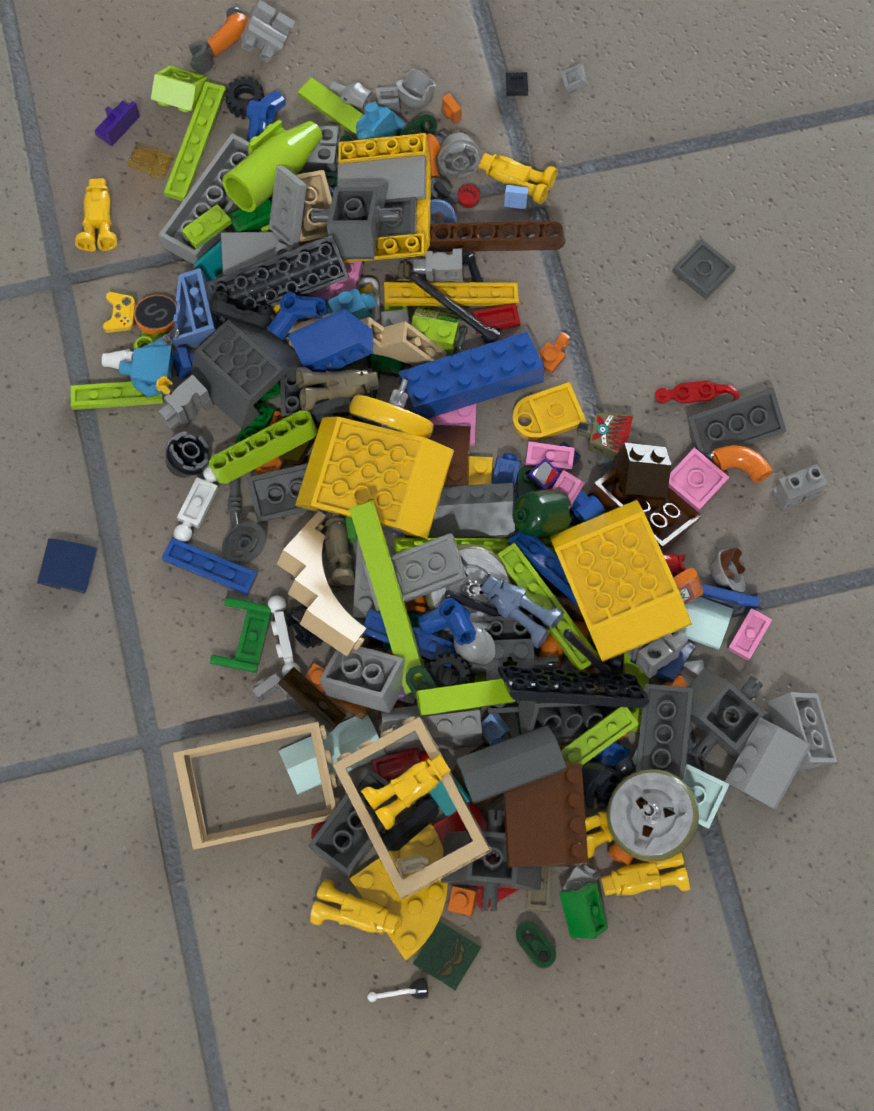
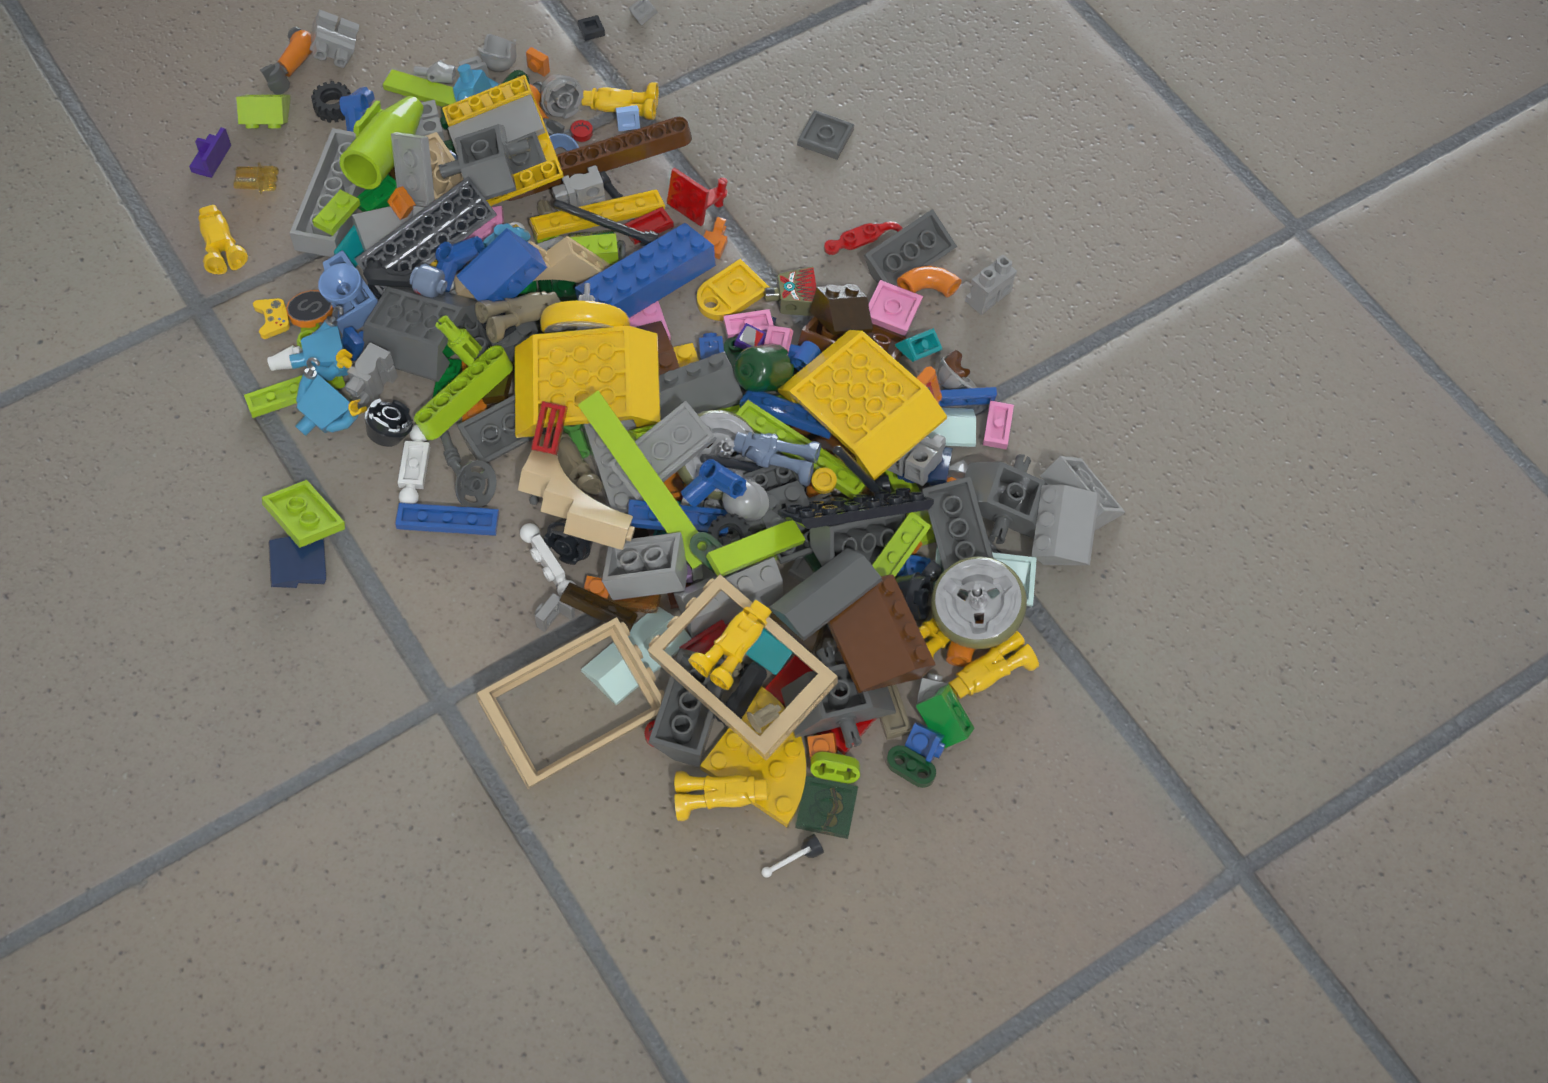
camera: 25 degrees left, 10 degrees down
(85, 522) = (303, 513): none -> lime plate
(135, 419) = (323, 404): none -> dark azure torso
(179, 299) = (337, 277): none -> medium blue piece
(195, 141) = (296, 150): lime plate -> none
(251, 638) = (515, 571): green plate -> none
(263, 329) = (428, 281): none -> sand blue head
(269, 233) = (401, 203): none -> orange plate
(271, 398) = (459, 340): none -> lime arm
(332, 497) = (558, 431): none -> red tile
(466, 923) = (835, 767): none -> lime beam
(494, 727) = (791, 577): light blue plate -> none
(545, 308) = (692, 198): none -> red plate
(555, 646) = (824, 480): none -> yellow tile
(557, 927) = (925, 742): none -> blue bracket
(706, 528) = (920, 345): none -> teal slope

